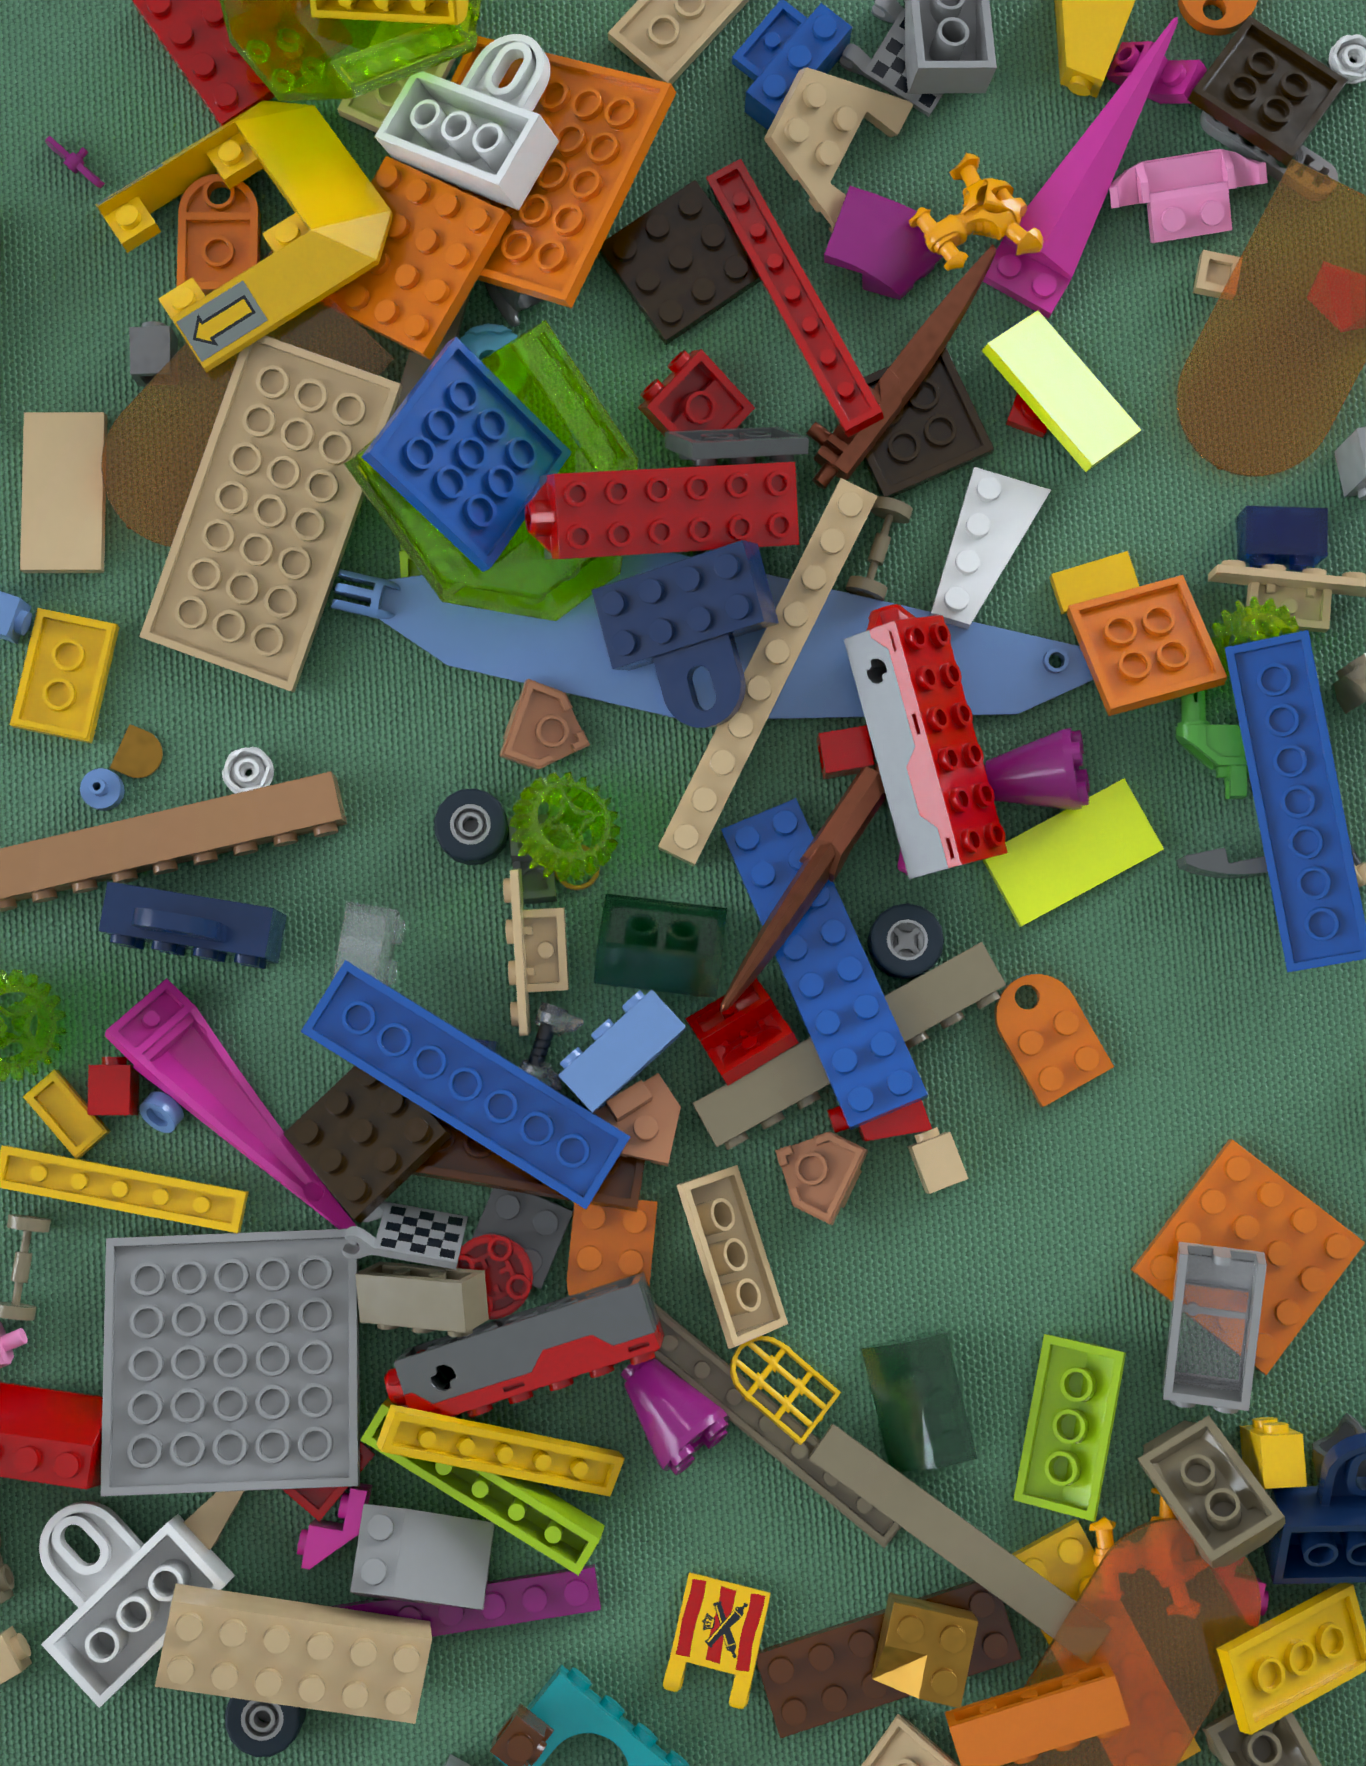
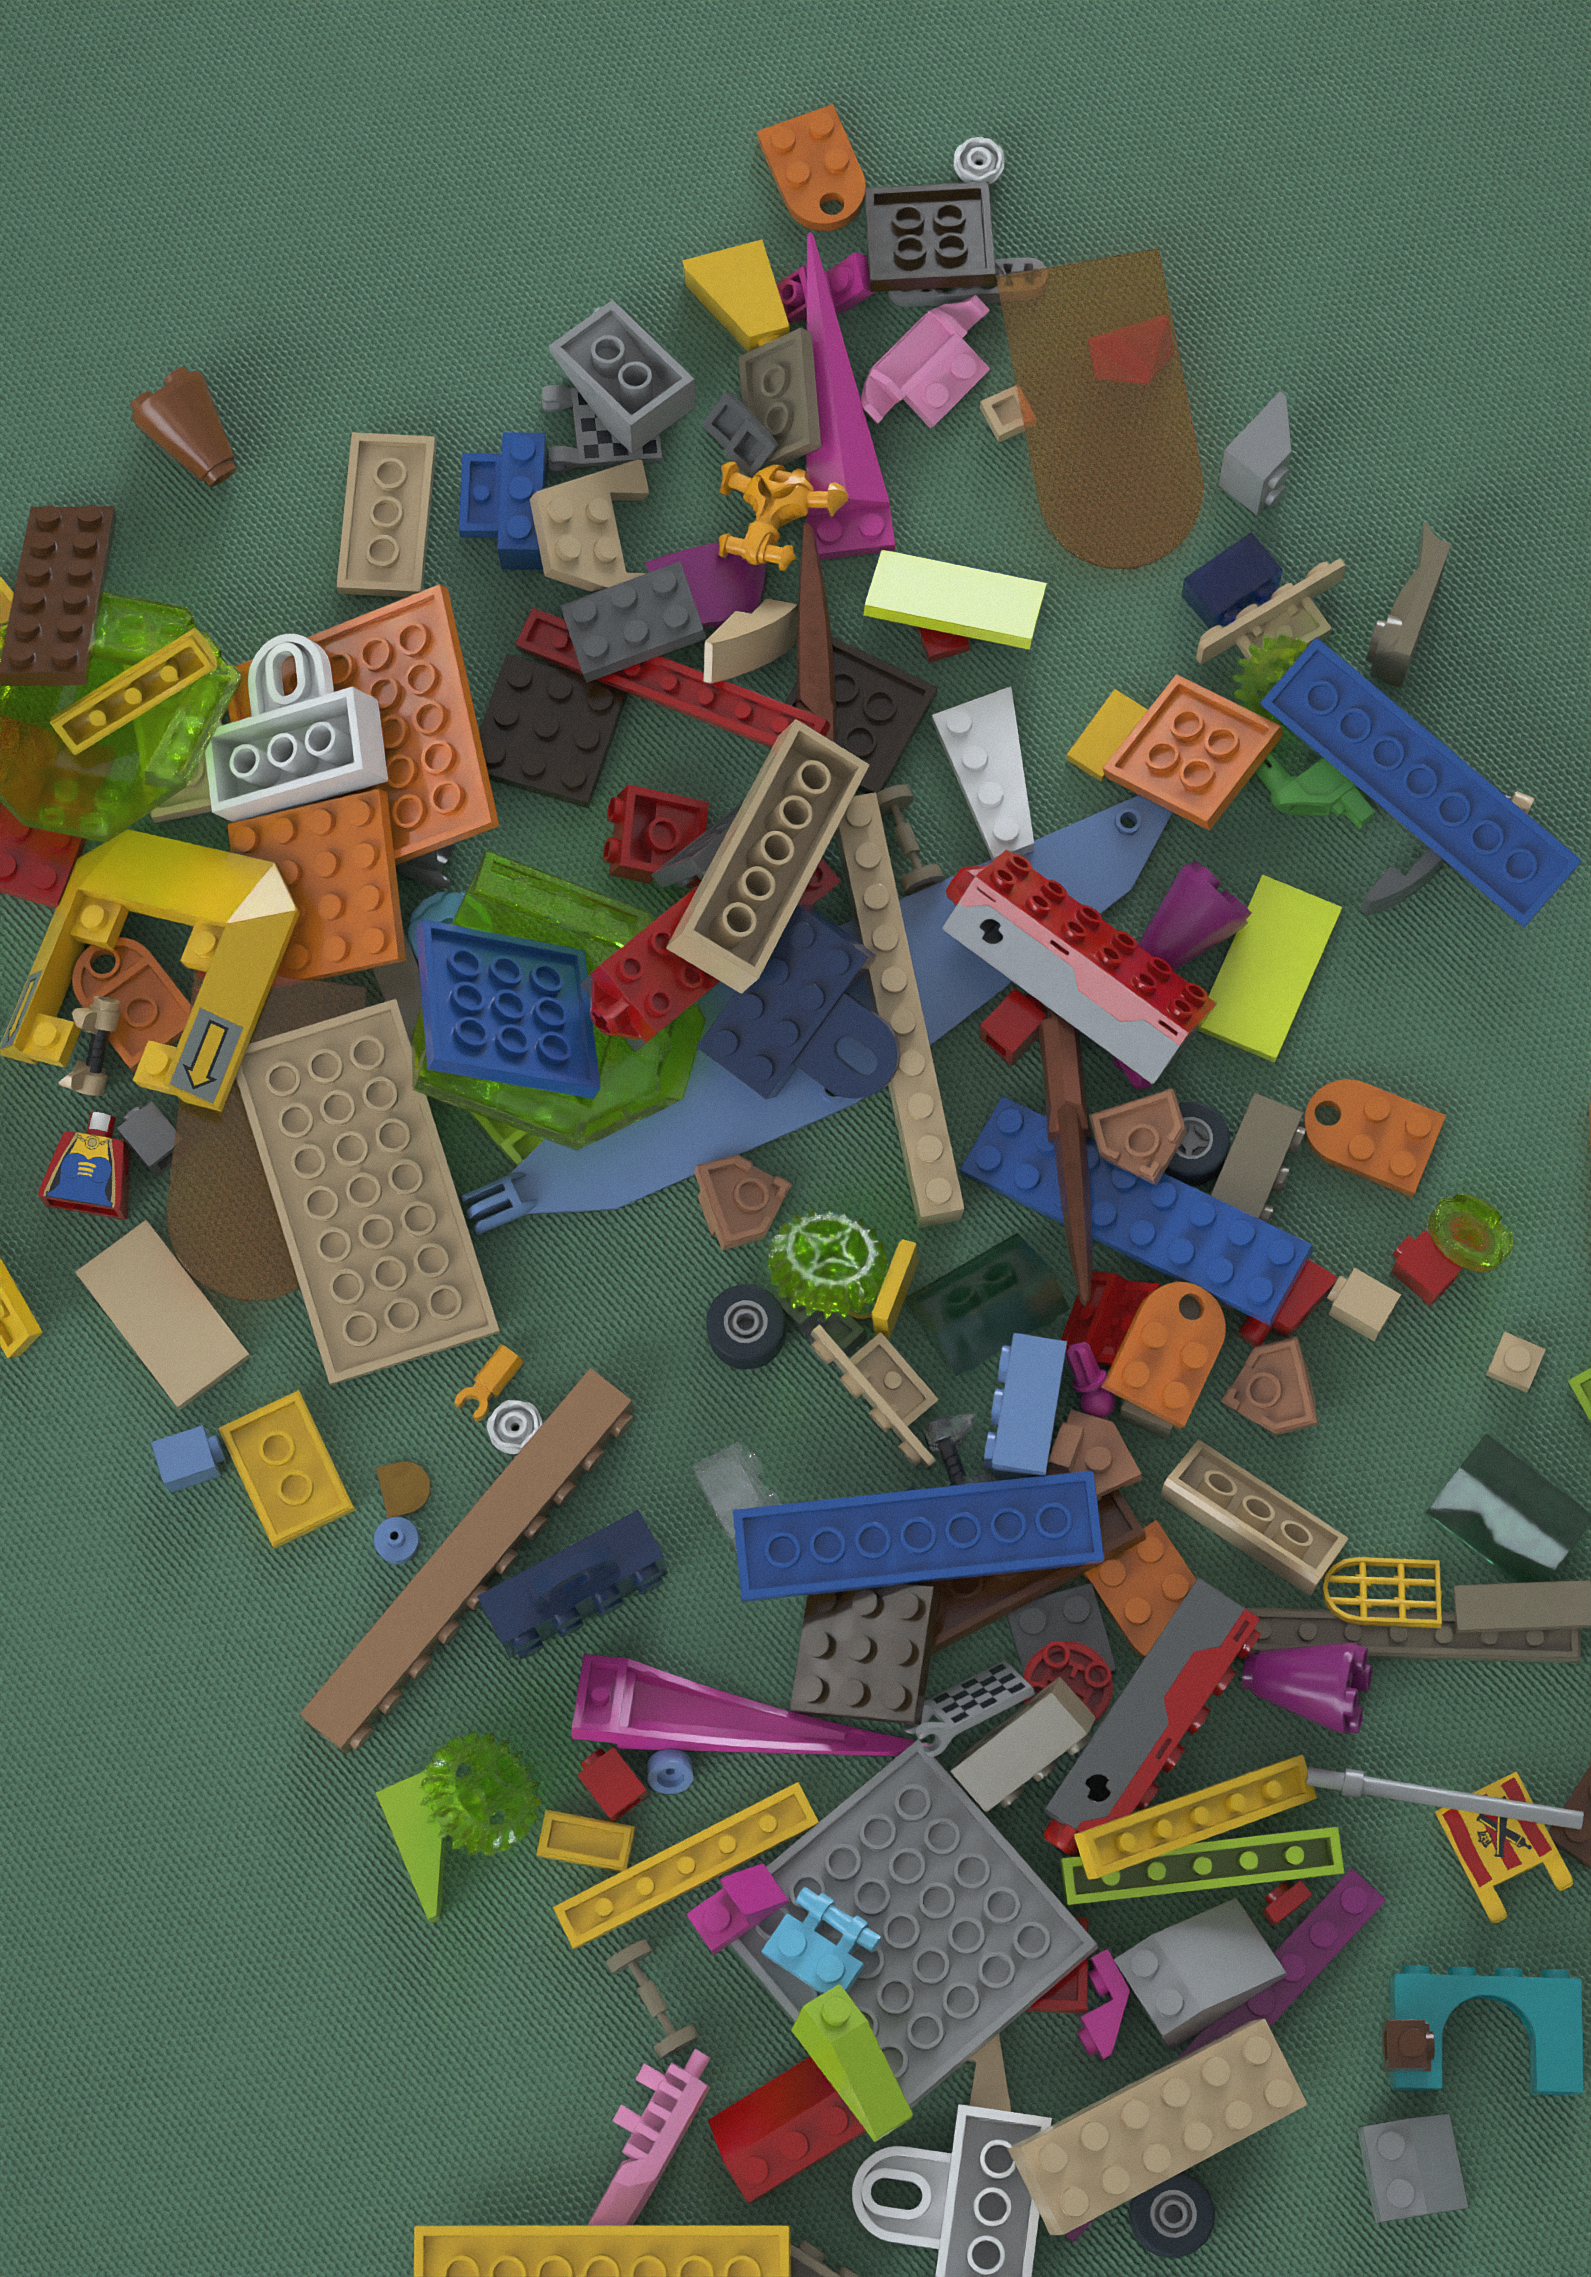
camera: 30 degrees left, 10 degrees down
(90, 344) = (89, 1171): none -> torso
(110, 1437) = (852, 2061): none -> lime slope
(128, 1250) = (738, 1907): none -> dark pink slope
(151, 1332) = (811, 1956): none -> medium azure plate
(177, 234) = (99, 1020): none -> tan piece
(258, 723) = (490, 1380): none -> light orange bar
(523, 1557) = (1284, 1901): none -> red plate
(601, 882) = (895, 1288): none -> yellow tile
(643, 1510) = (1354, 1783): none -> light grey bar
(688, 1063) = (1089, 1381): none -> dark pink axle
(749, 485) = (768, 856): none -> tan brick
(756, 1092) = (1167, 1355): none -> orange plate
(802, 225) = (633, 622): none -> dark grey plate
(869, 910) = (1141, 1134): none -> nougat plate
(877, 305) = (750, 640): none -> tan slope
(1002, 138) = (741, 434): none -> dark grey slope
(1006, 1169) = (1424, 1268): none -> red brick
(1016, 1290) = (1515, 1362): none -> tan plate
(1050, 135) = (782, 393): none -> dark tan plate
(1058, 1171) = (1470, 1233): none -> clear neon green tile

